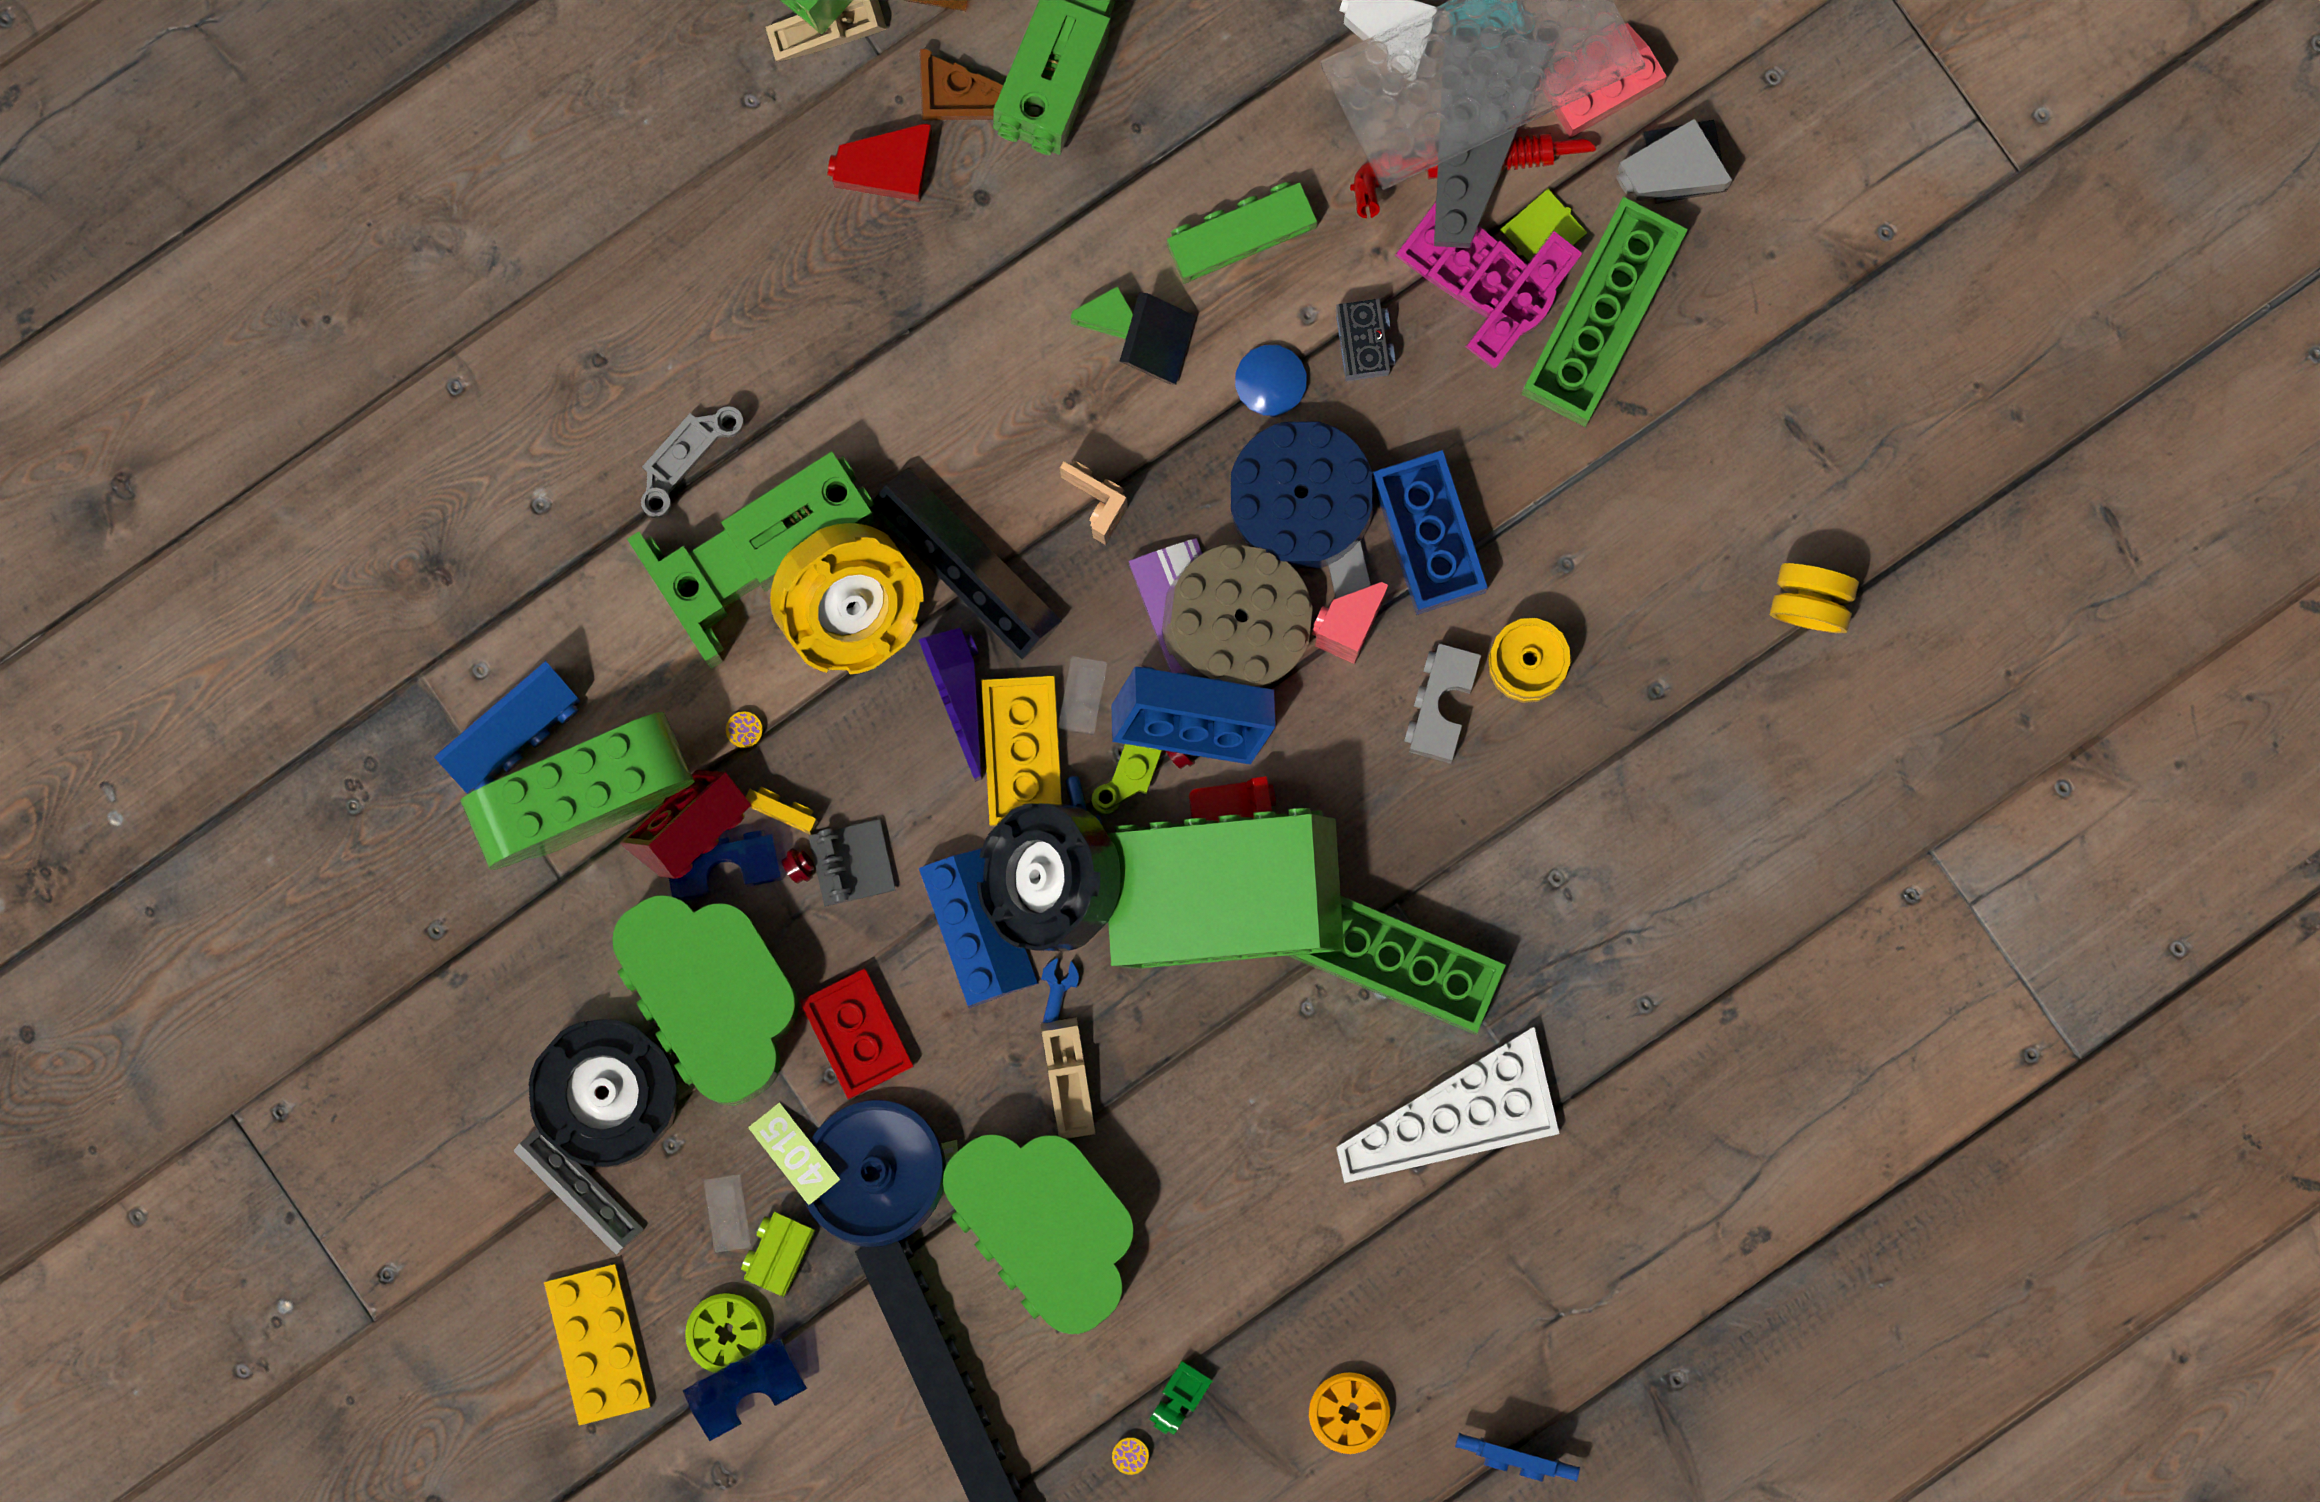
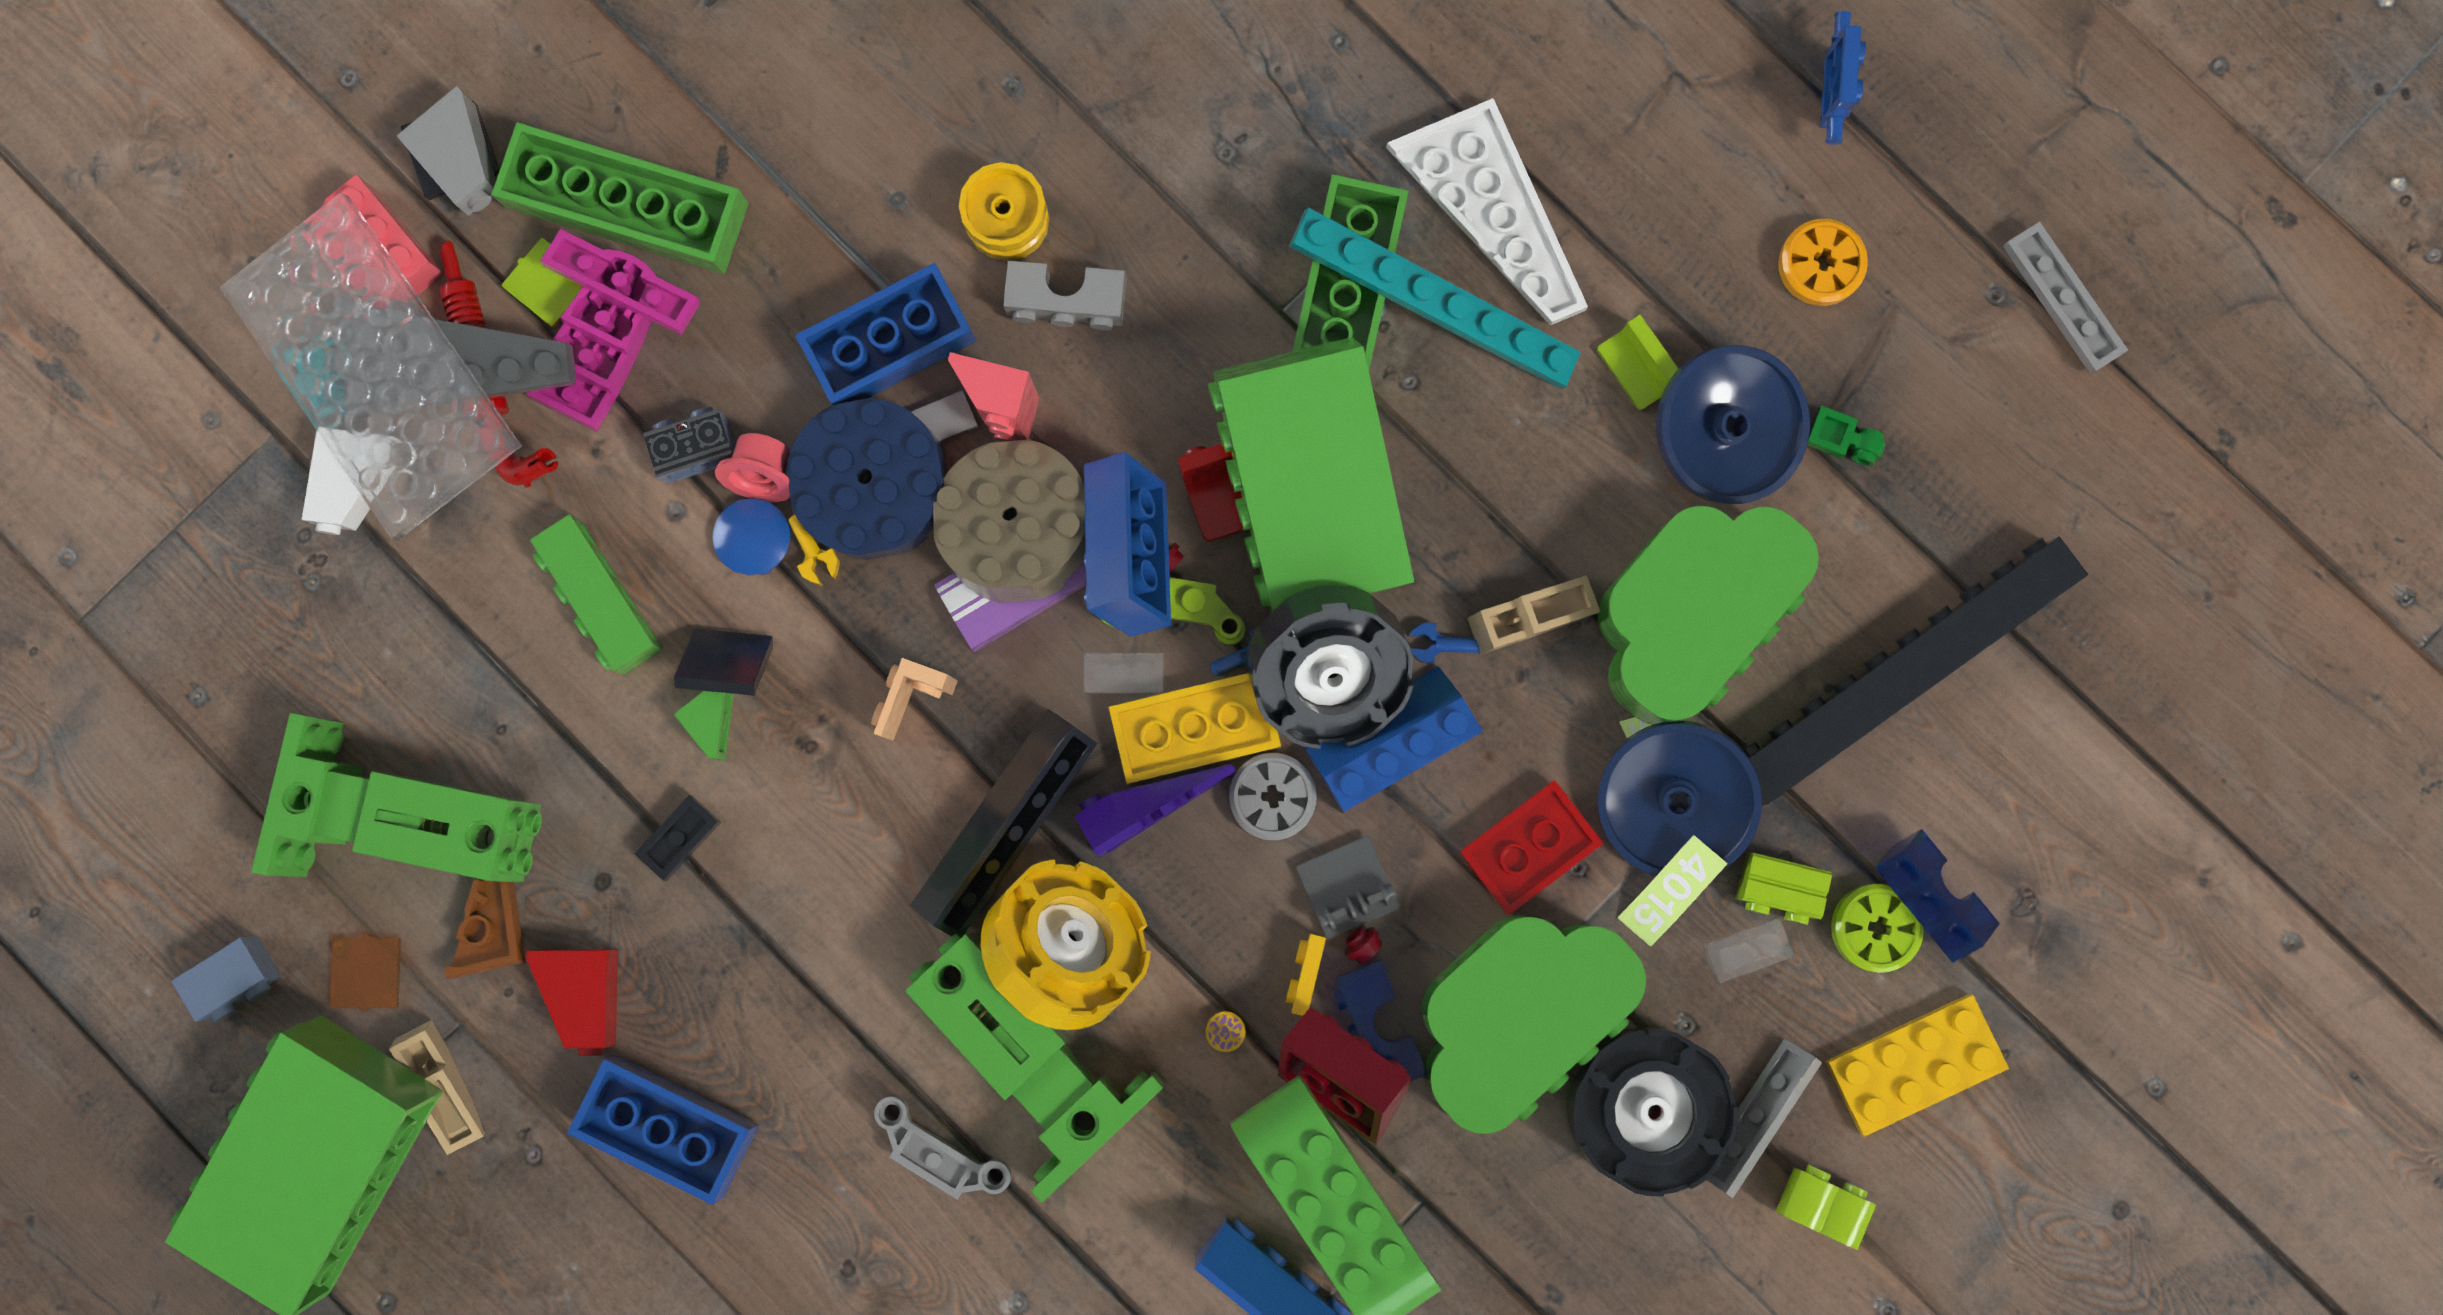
camera: 95 degrees left, 0 degrees up
(489, 1233) = (1825, 1207): none -> lime brick
(752, 220) = (663, 1129): none -> blue brick
(960, 827) = (1289, 778): none -> light grey wheel
(1007, 271) = (677, 838): none -> black plate
(1130, 1456) = (1914, 478): yellow tile -> none
(1207, 1292) = (1733, 424): none -> dark blue dish
(1246, 432) = (812, 552): none -> yellow bar
(1283, 1221) = (1638, 362): none -> lime panel
(1329, 396) = (756, 468): none -> coral piece
(1371, 1039) = (1434, 298): none -> teal plate

